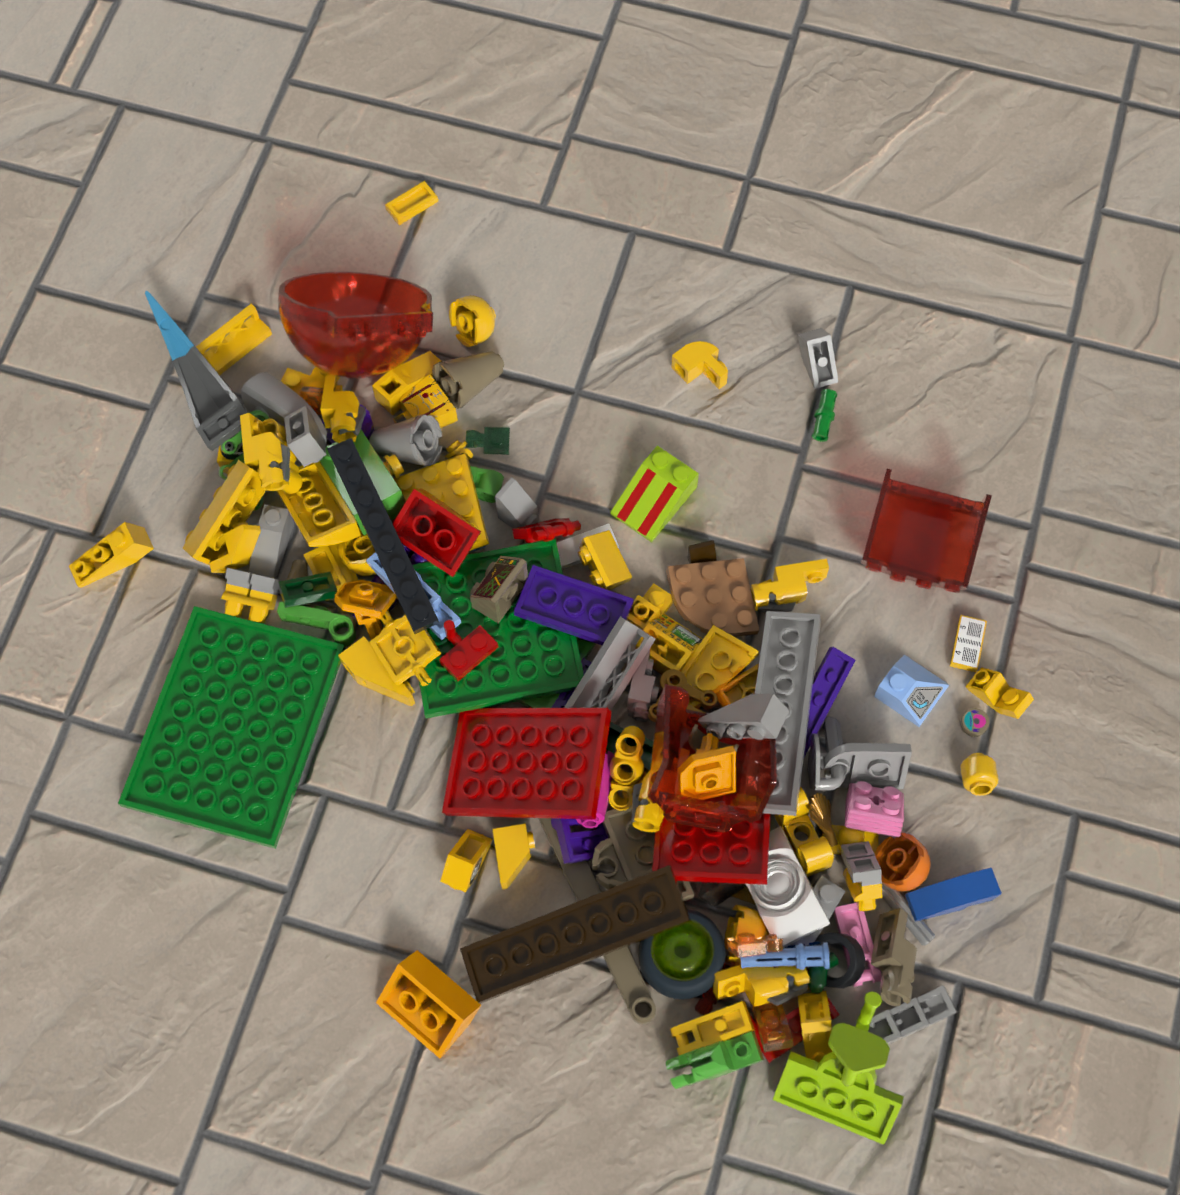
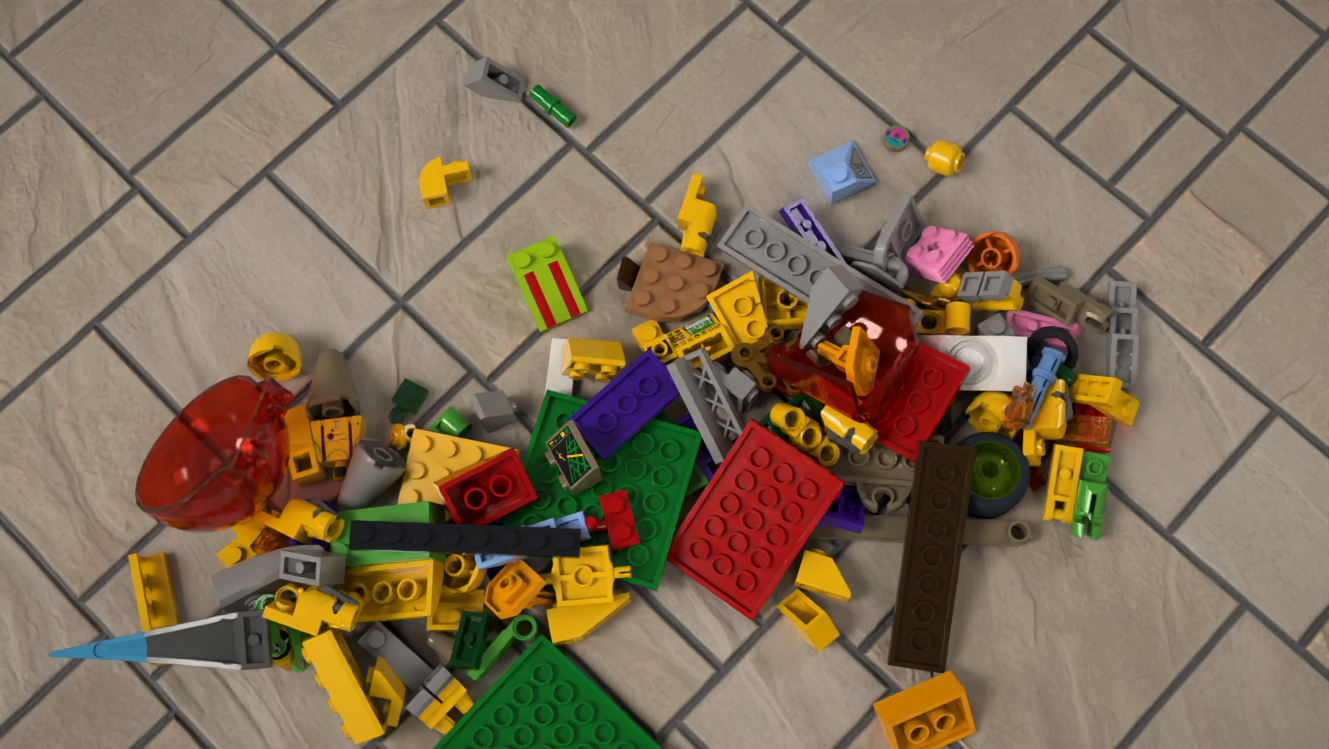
camera: 60 degrees left, 5 degrees up
(393, 465) = (387, 499): yellow plate -> none
(411, 203) = (107, 353): yellow tile -> none
(546, 530) = (533, 393): red plate -> none
(844, 1081) = (1165, 395): lime plate -> none
(924, 535) = (718, 80): clear red windscreen -> none
(953, 894) = (1038, 232): blue slope -> none
(968, 643) = (824, 106): tile -> none
(996, 693) = (879, 108): yellow slope -> none

